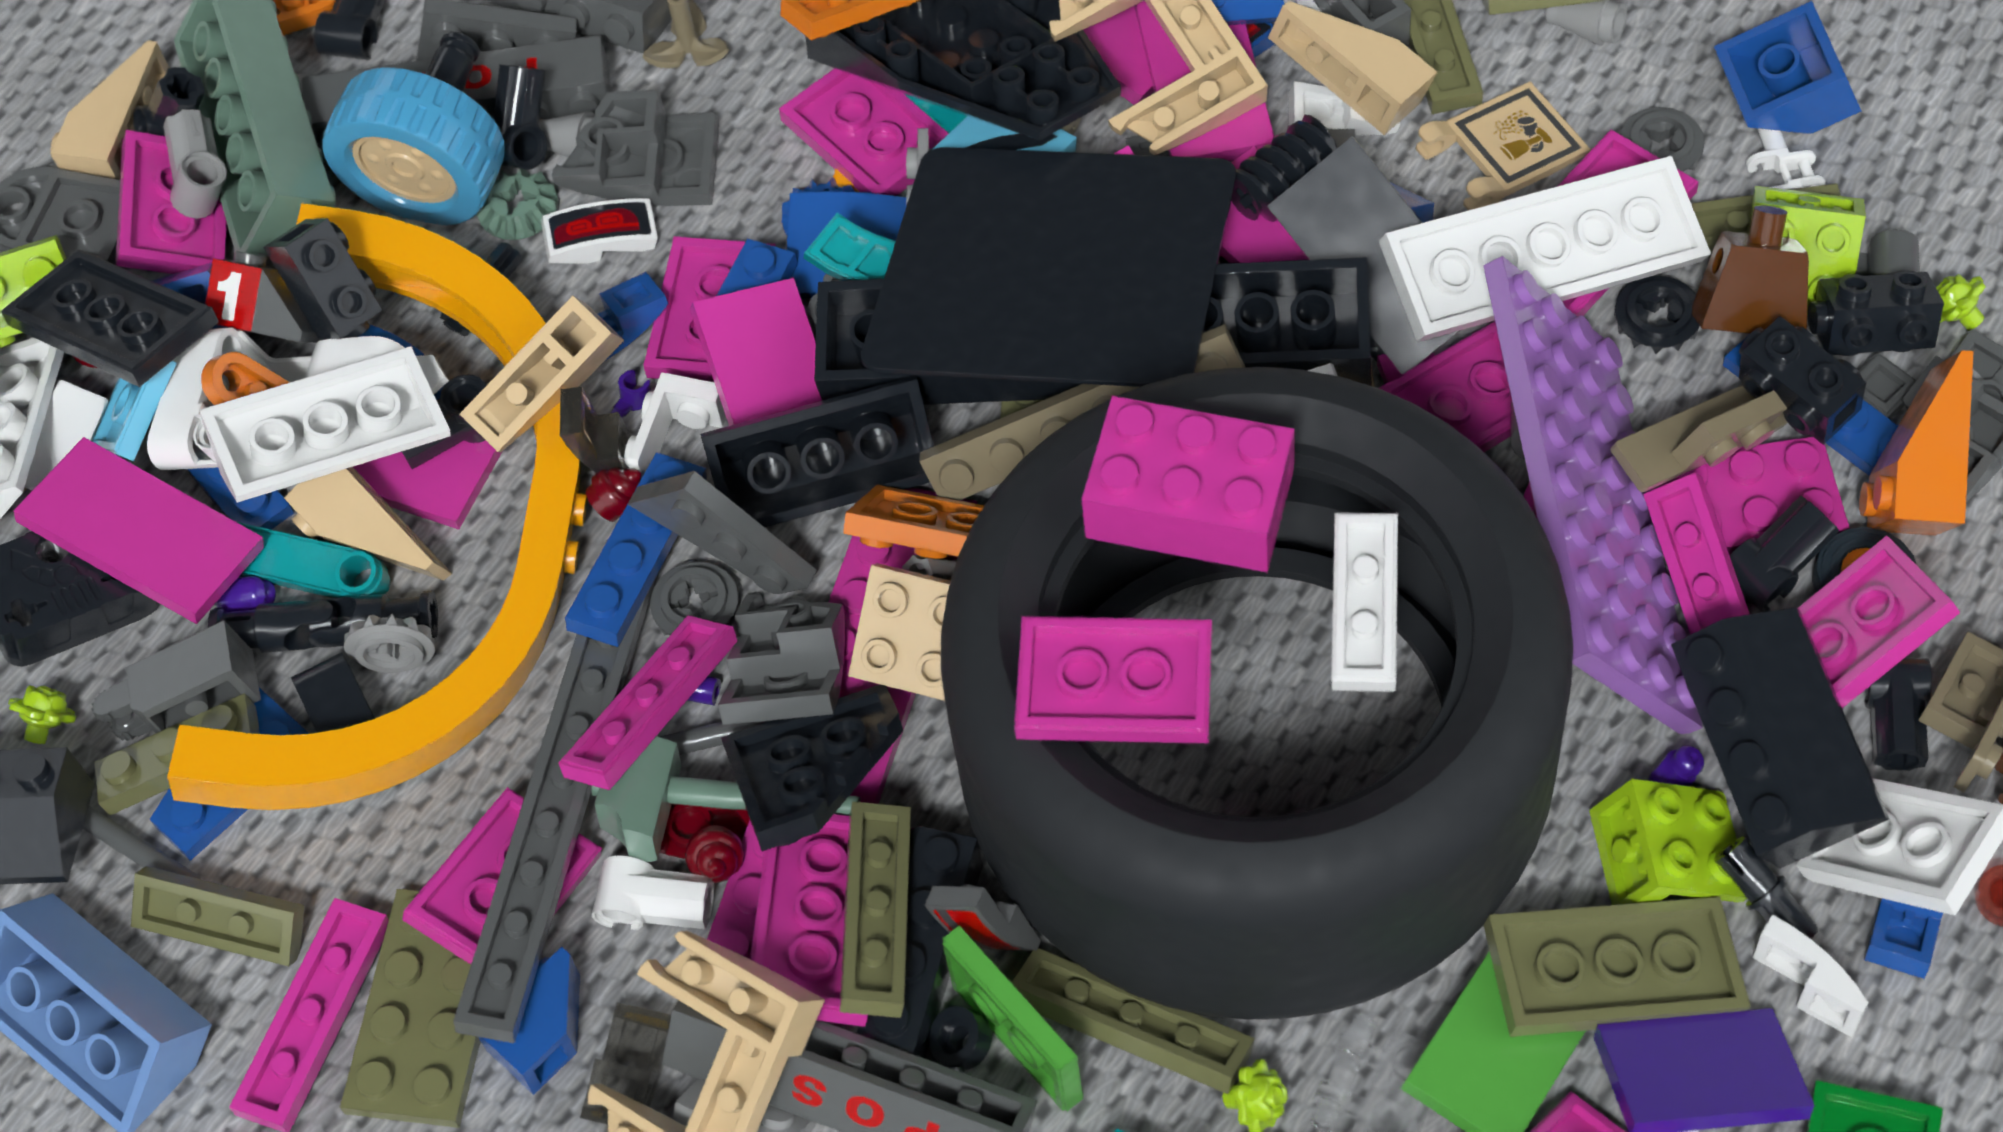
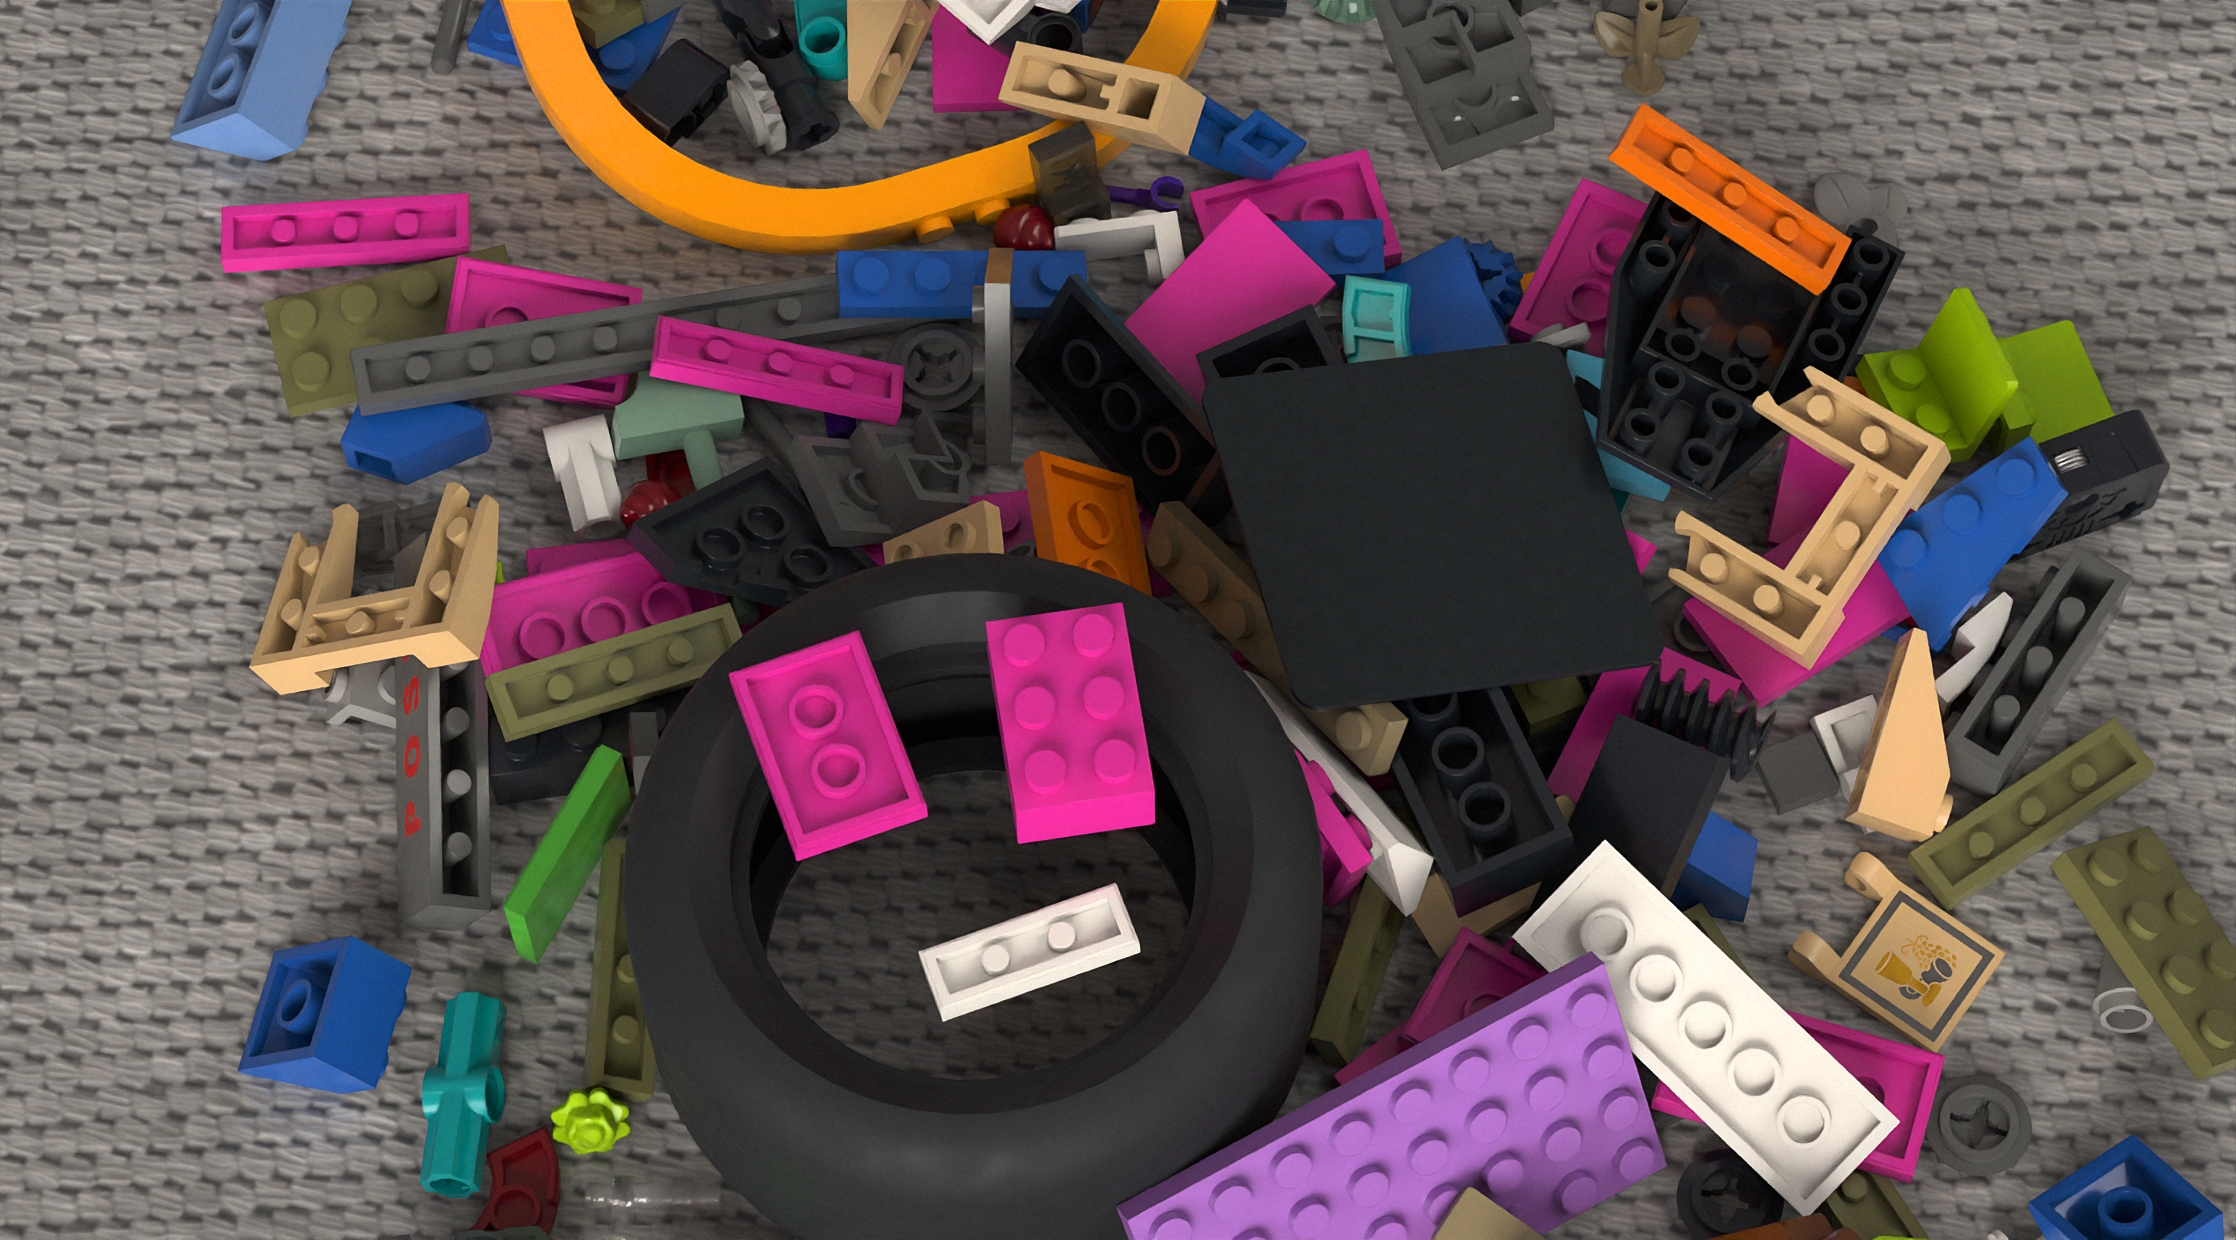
camera: 60 degrees right, 5 degrees up
(217, 915) = (411, 101): olive plate -> none
(587, 230) = (1350, 73): slope -> none
(948, 1034) = (527, 823): black plate -> none

